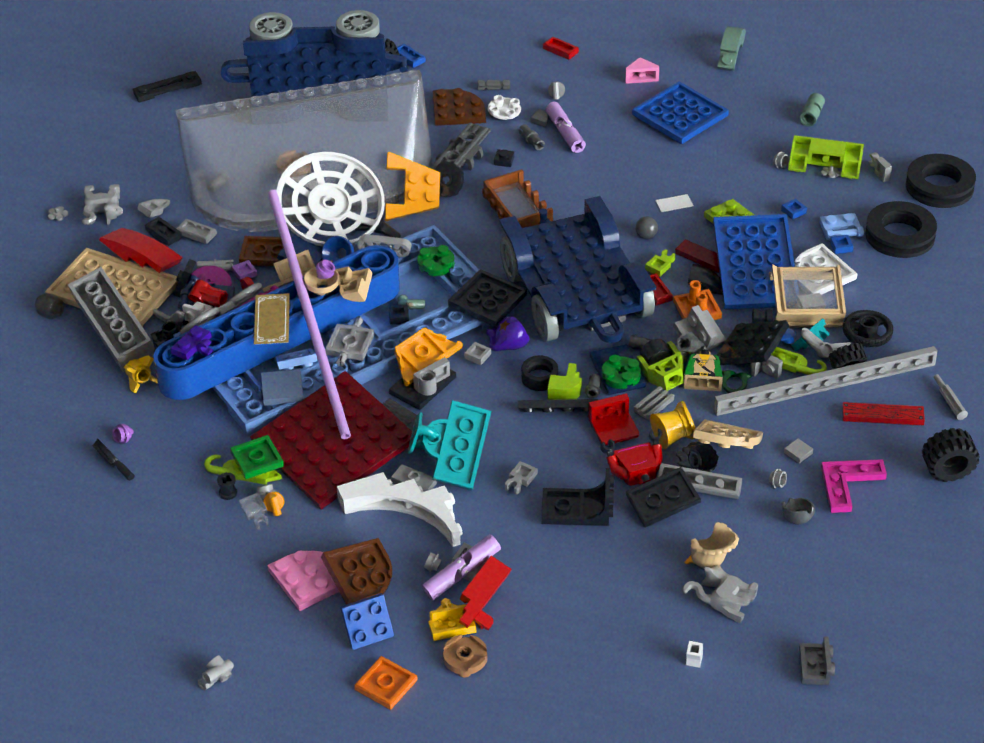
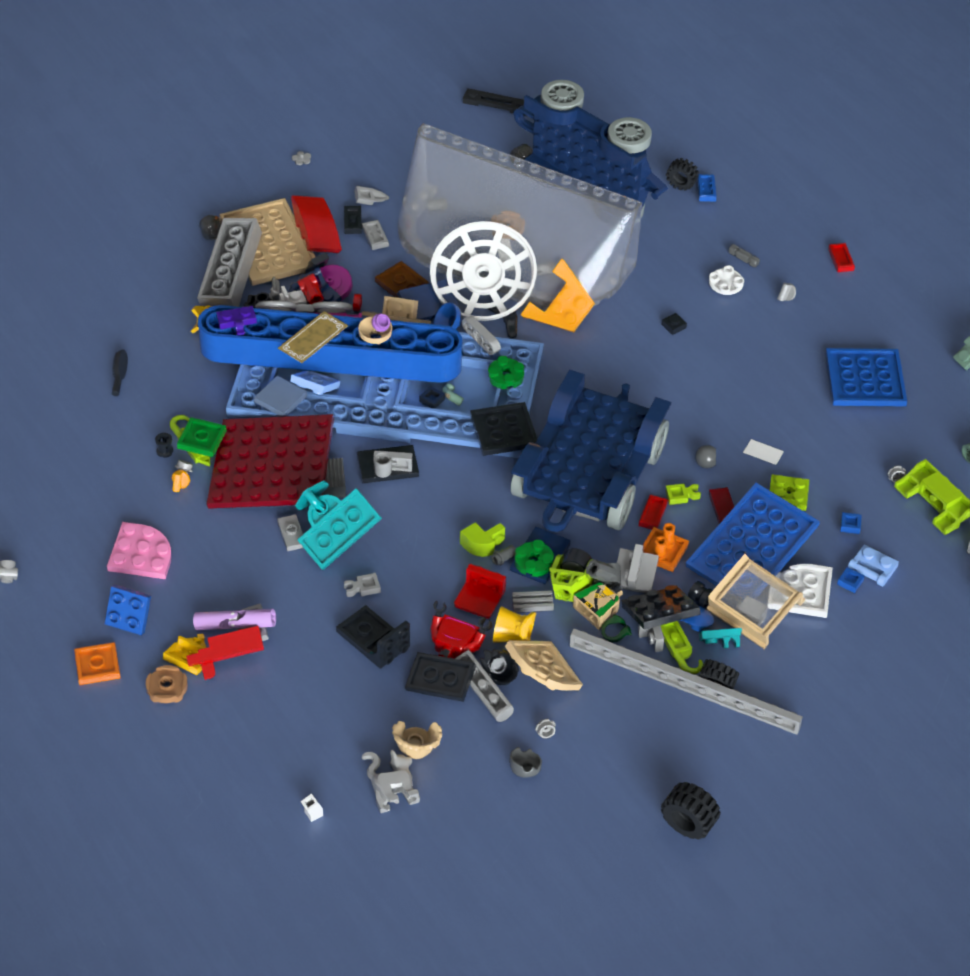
camera: 40 degrees right, 5 degrees up
(101, 203) = (335, 169): light grey animal -> none
(122, 433) = (147, 357): medium lavender plate -> none
(224, 264) = (356, 271): light grey axle -> none
(244, 270) = (370, 289): medium lavender plate -> none
(254, 508) = (162, 474): clear plate -> none
(309, 316) = (340, 350): lavender piece -> none
(349, 341) = (364, 394): light grey plate -> none
(354, 284) = (398, 348): tan slope -> none
(359, 569) = (169, 571): reddish brown plate -> none
(405, 497) = (255, 526): white arch -> none
(421, 351) = (408, 437): light orange wing -> none
(432, 562) = (227, 602): light grey plate -> none
(456, 178) = (606, 313): black plate -> none
(457, 107) = (690, 257): reddish brown plate -> none
(461, 150) = (642, 295): dark grey piece -> none
(477, 353) = (452, 468): light grey plate -> none
(508, 335) = (489, 470): dark purple piece -> none
(514, 197) = (634, 363): dark orange window -> none
(531, 137) = (715, 320): dark grey pin -> none
(537, 363) = (481, 505): black tyre -> none
(539, 118) = (745, 308): dark grey tile -> none
(549, 405) = (453, 546): black plate -> none
(565, 127) = (753, 329): lavender piece -> none
(638, 342) = (580, 543): dark grey pin -> none
(642, 71) = (877, 319): bright pink slope -> none
(706, 277) = (699, 527): black brick -> none
(798, 450) = (592, 719): light grey tile -> none
(816, 662) = (388, 883): flat silver bracket -> none
(822, 348) = (715, 653): light grey piece -> none
(830, 172) = (928, 513): light grey plant -> none
(838, 473) = (599, 759): dark pink plate -> none
(867, 328) = (775, 664): black wheel -> none
(883, 413) = (698, 741): red tile -> none
(899, 245) = (921, 581): black tyre -> none
(951, 399) = (768, 770): light grey axle -> none

